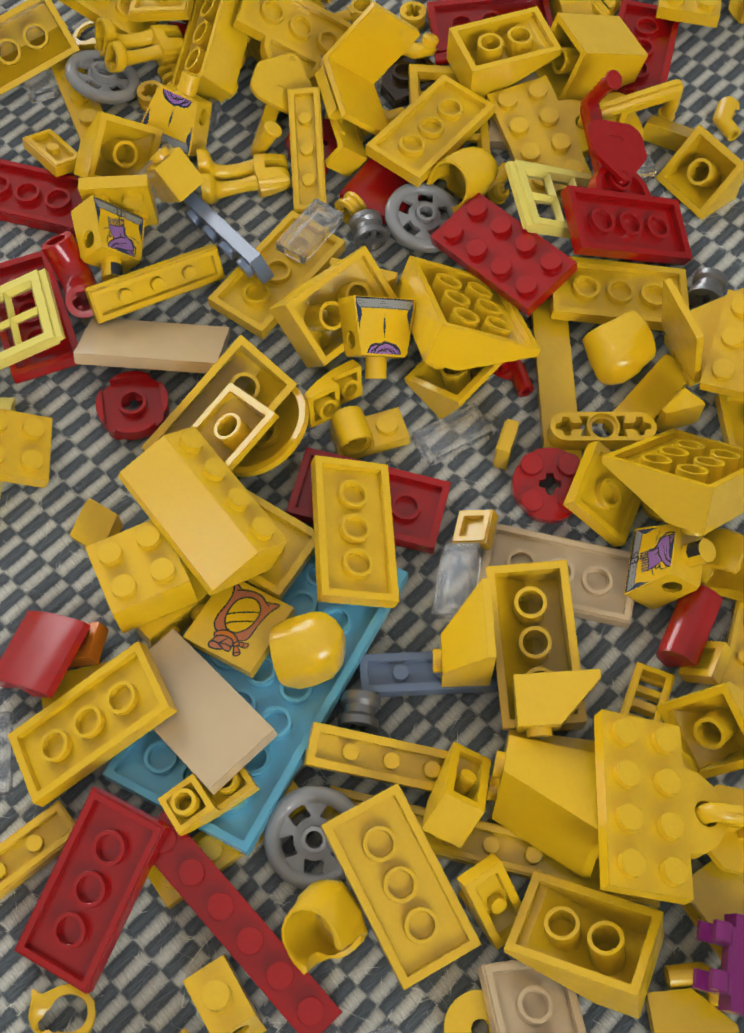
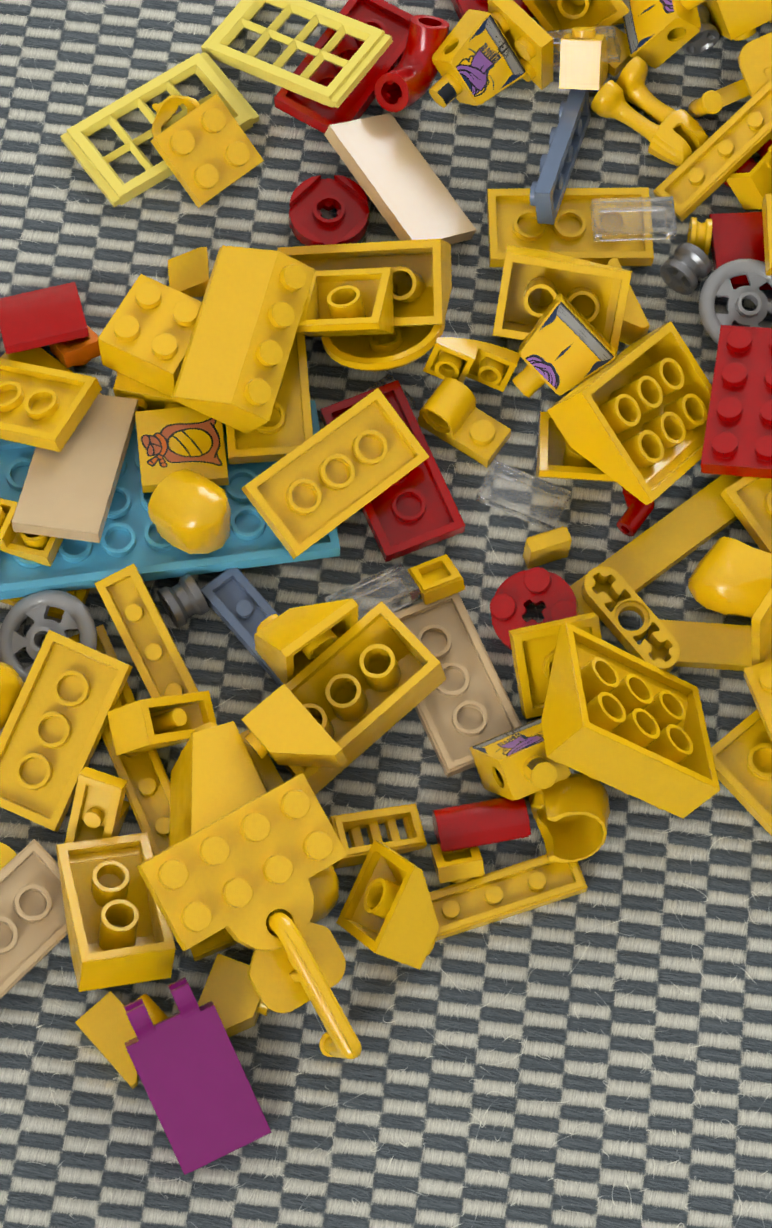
camera: 50 degrees right, 5 degrees up
(155, 283) = (464, 135): yellow tile -> none
(680, 411) = (714, 677): yellow slope -> none

